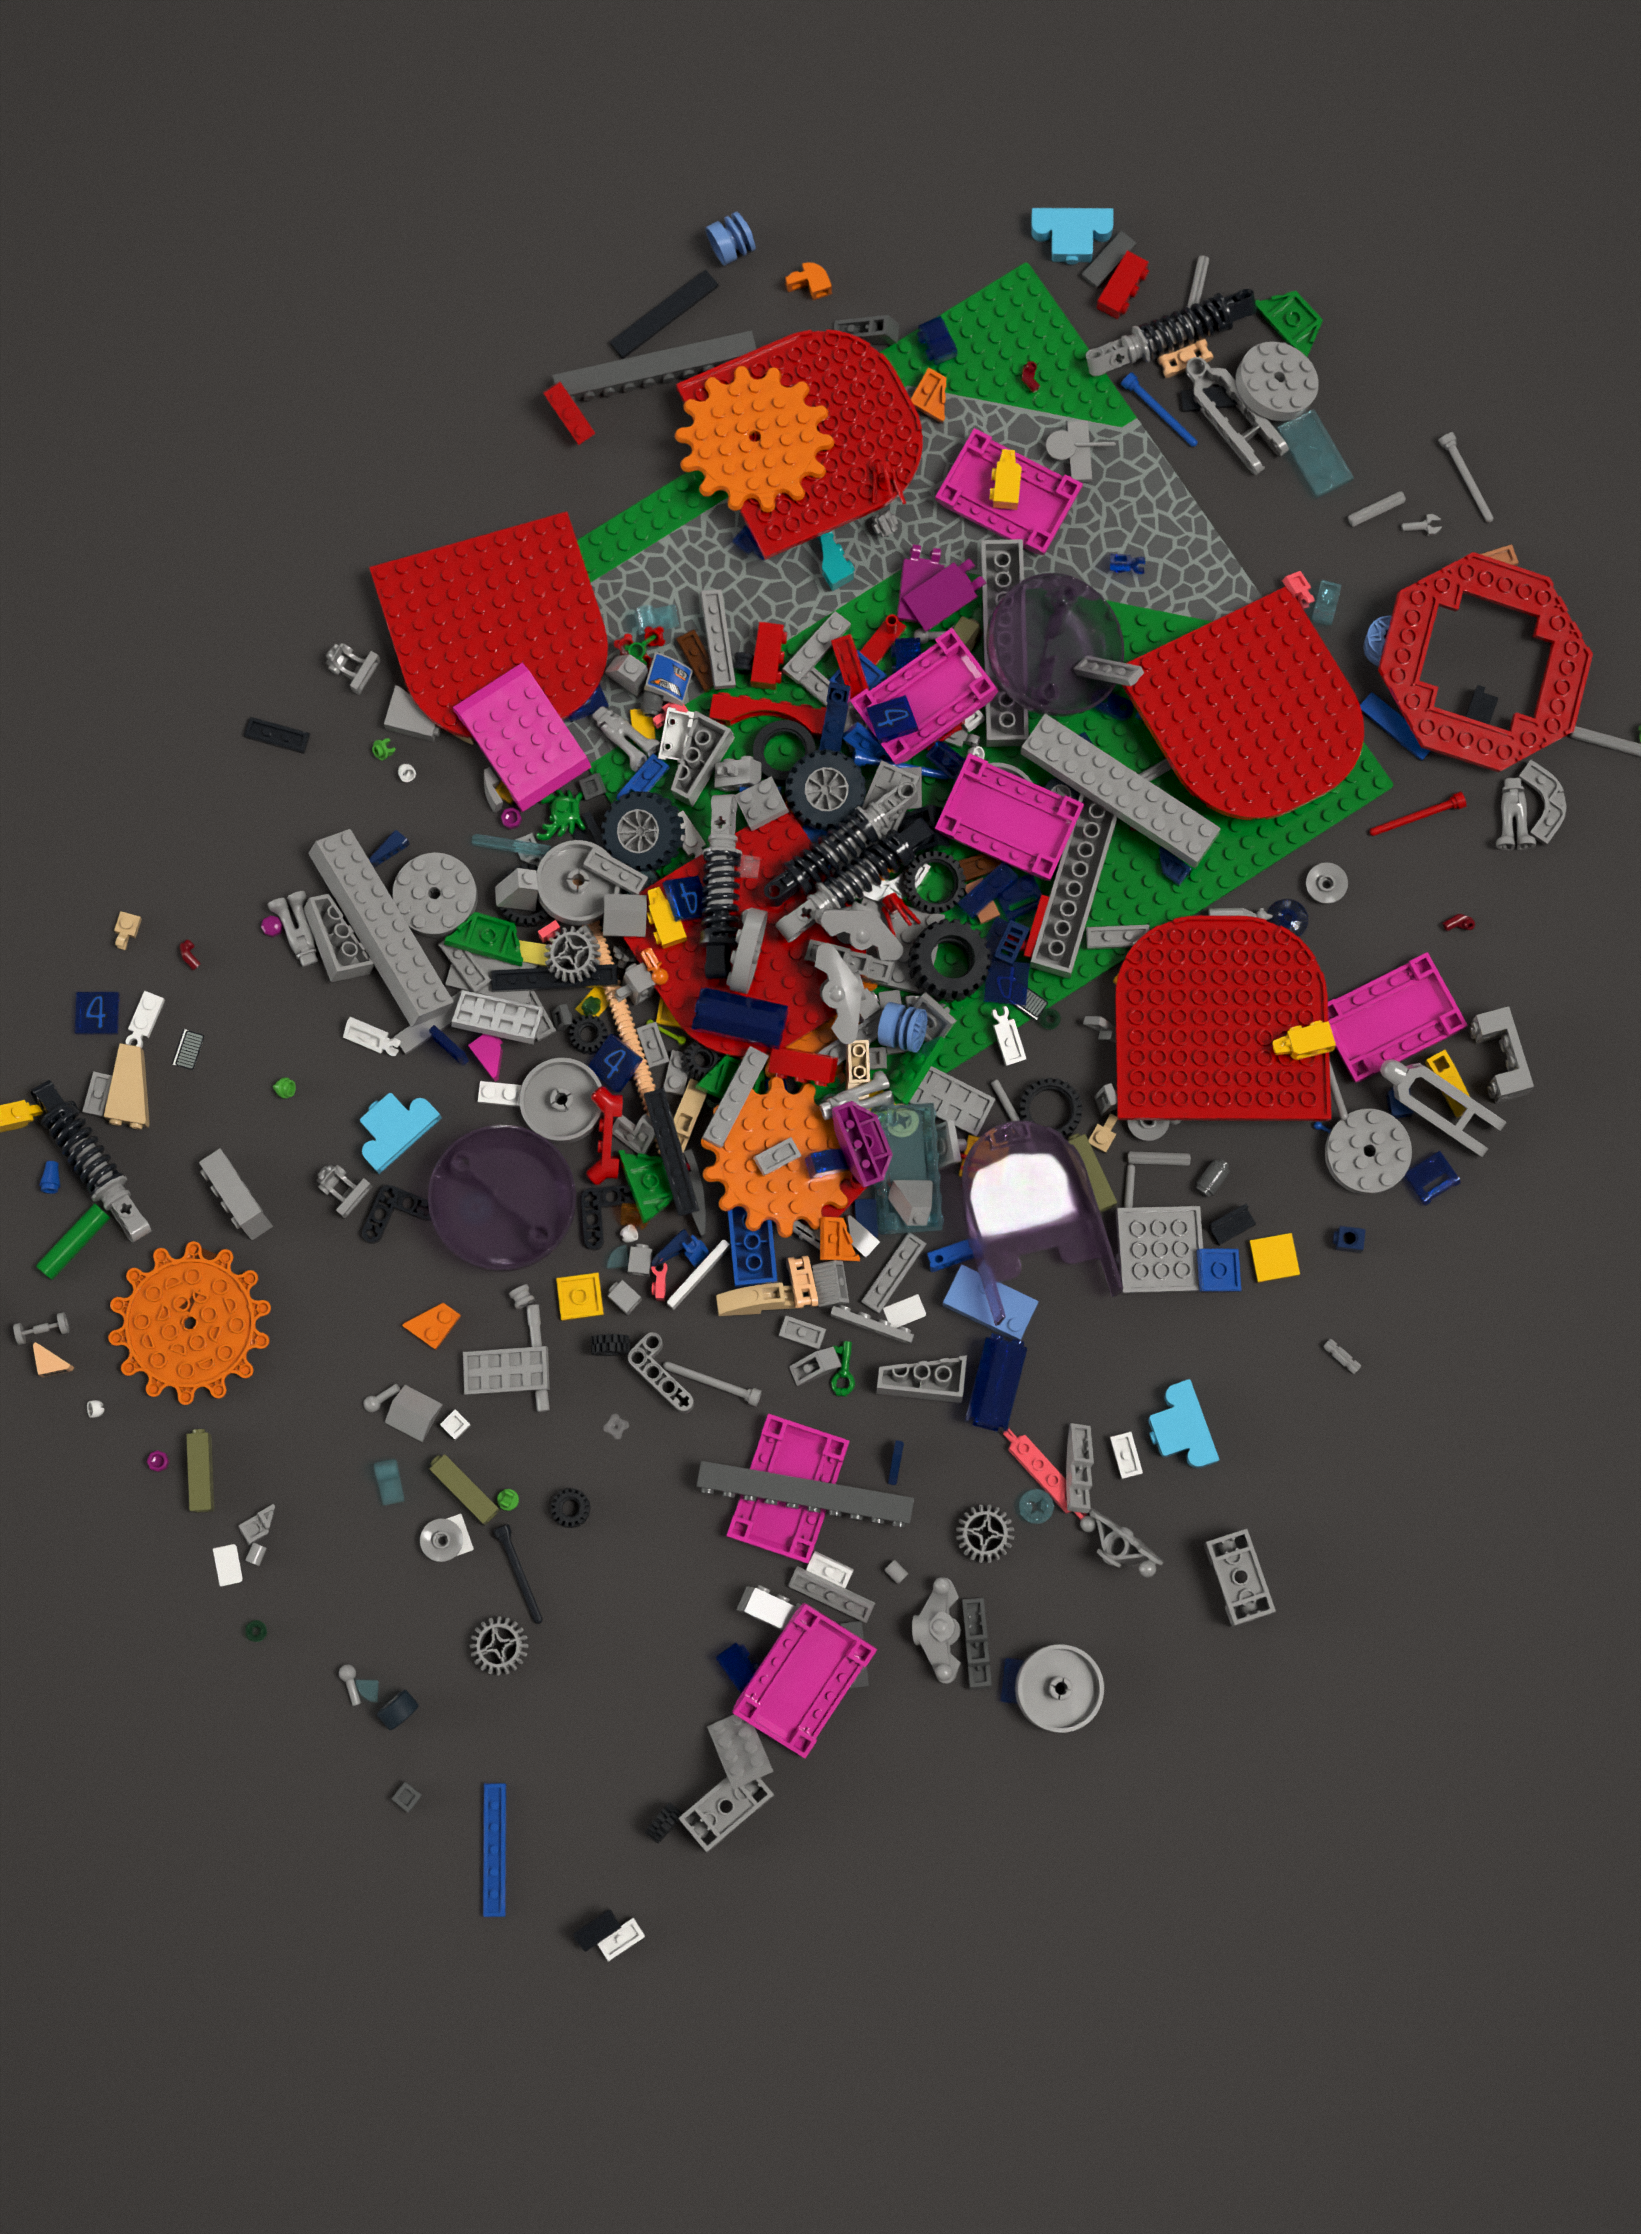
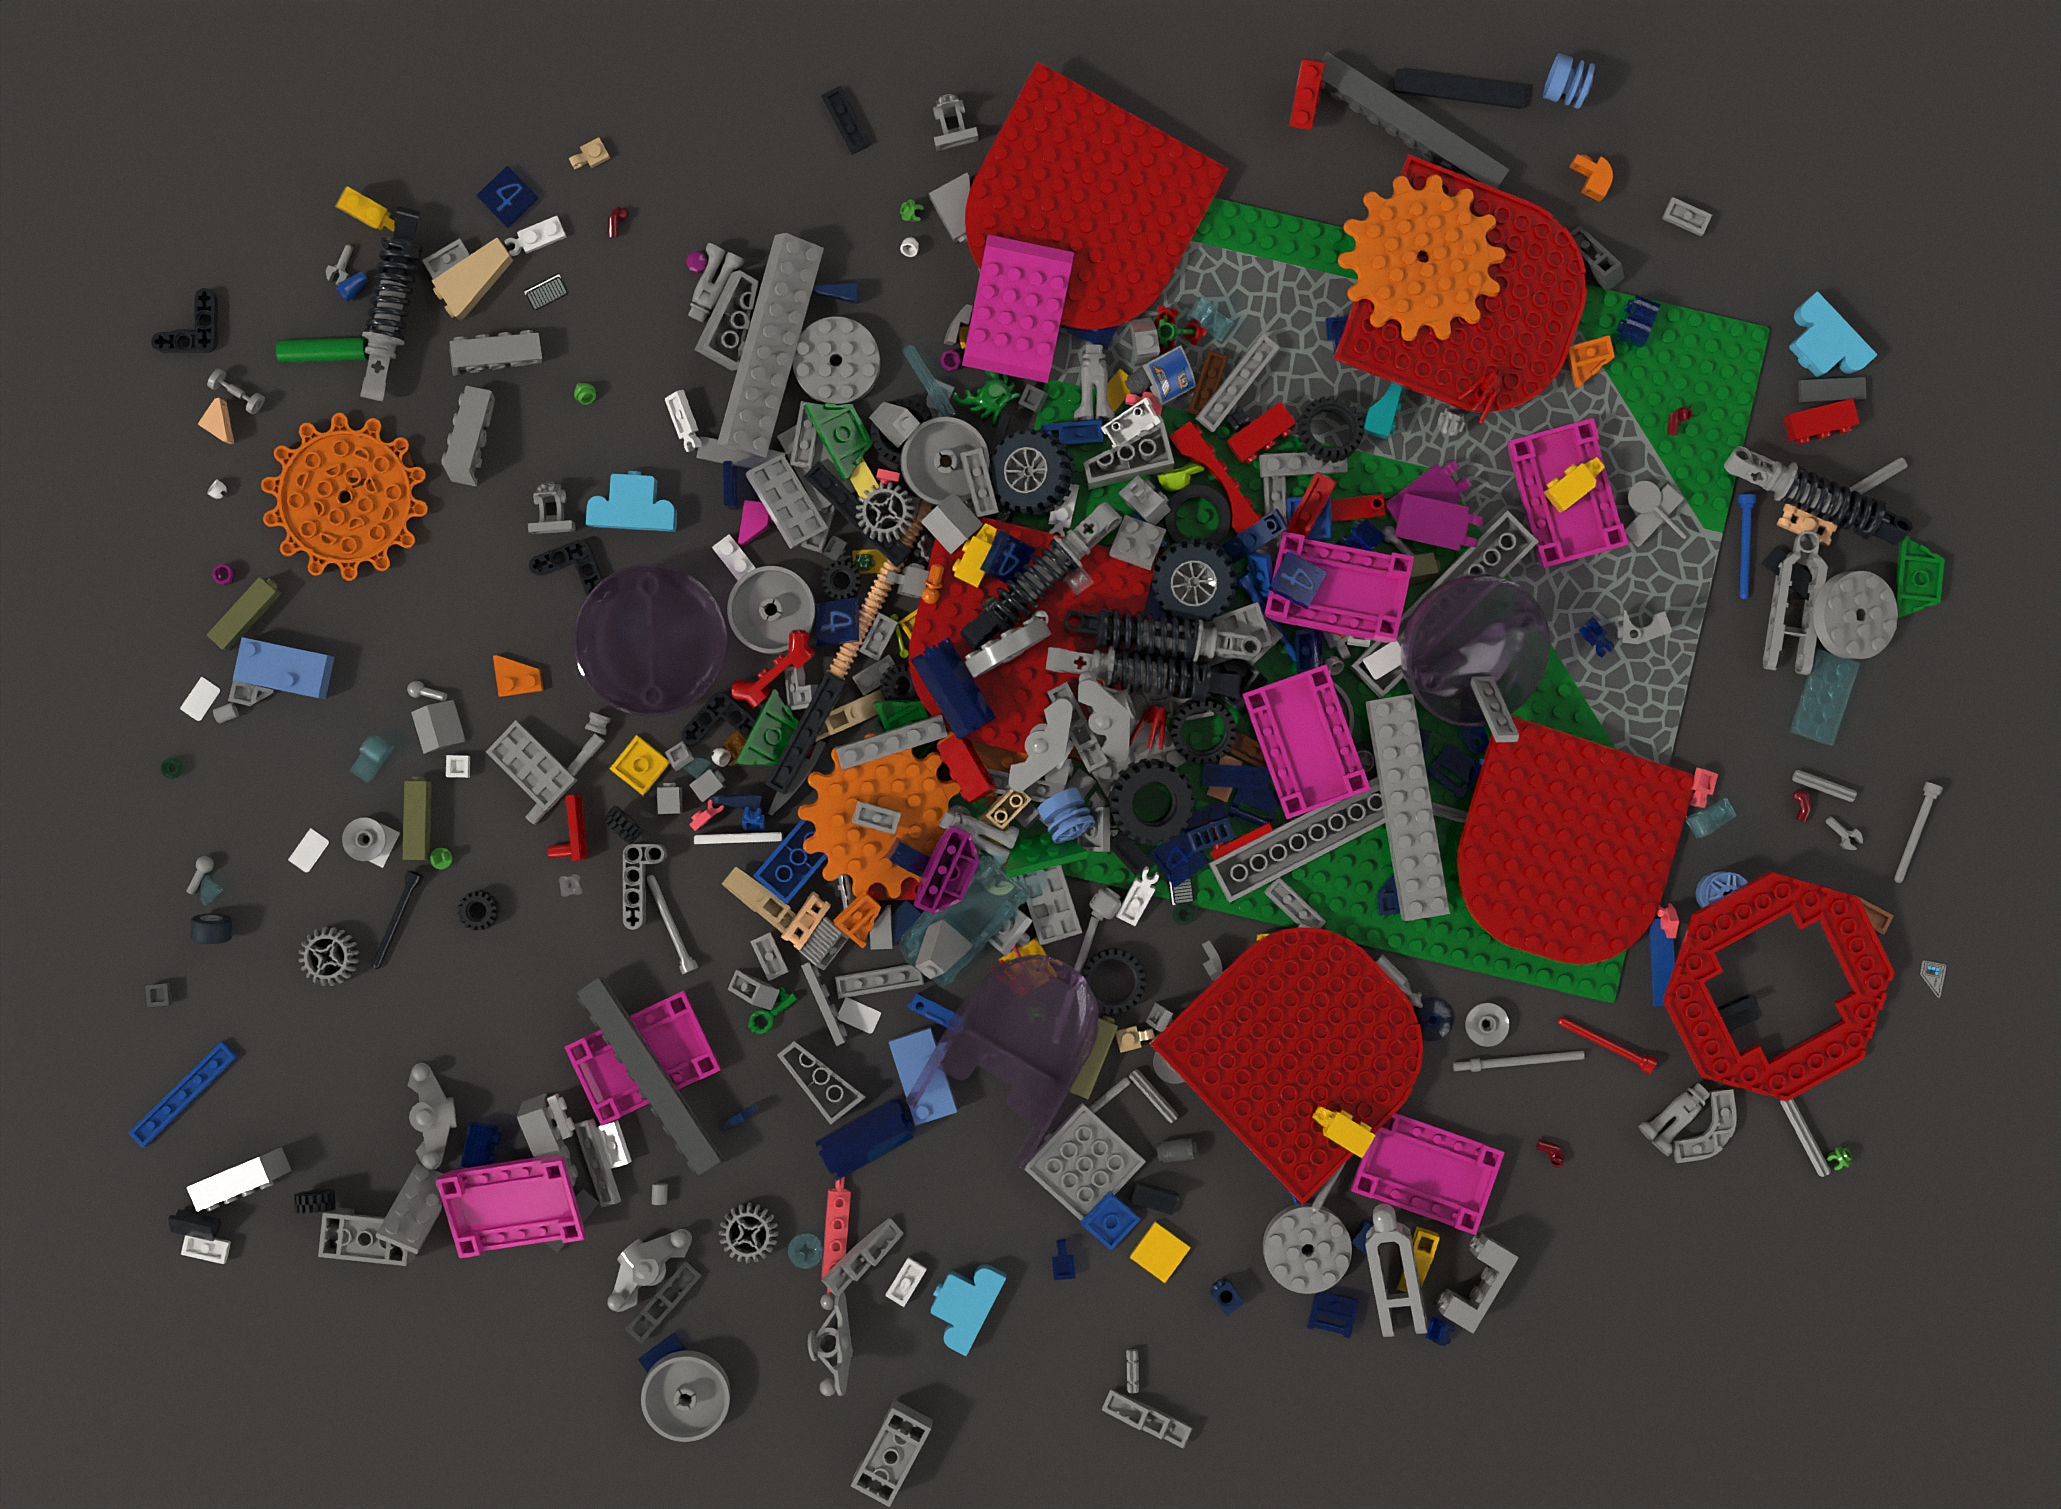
camera: 45 degrees right, 10 degrees up
(28, 1173) = (340, 267): none -> light grey bar
(194, 1121) = (494, 351): none -> light grey wedge
(266, 1480) = (283, 668): none -> medium blue brick
(410, 1590) = (309, 850): none -> white sticker
(594, 1394) = (577, 848): none -> red piece
(594, 1866) = (239, 1180): none -> wedge
(600, 1261) = (679, 755): none -> light grey tile
(684, 1680) = (432, 1115): none -> light grey piece
(745, 738) = (1178, 478): none -> lime cap
(782, 1589) = (564, 1124): none -> white plate
(808, 587) = (1346, 412): none -> black tyre
(898, 246) = (1686, 216): none -> light grey plate
(971, 1014) = (1129, 853): none -> black tile
(991, 1063) = (1105, 904): none -> light grey head
(1004, 714) = (1384, 660): none -> white sticker
(1127, 734) = (1458, 764): none -> plate
(1159, 515) = (1658, 627): none -> light grey tile
(1219, 1333) = (1063, 1264): none -> clear blue plate
(1349, 916) = (1477, 1064): none -> light grey bar
(1370, 694) = (1669, 920): none -> coral plate
(1377, 532) = (1805, 805): none -> dark red arm
(1386, 1377) = (1147, 1418): none -> light grey slope
(1514, 1115) = (1439, 1331): none -> clear blue tile
(1579, 556) = (1934, 975): none -> light grey sticker

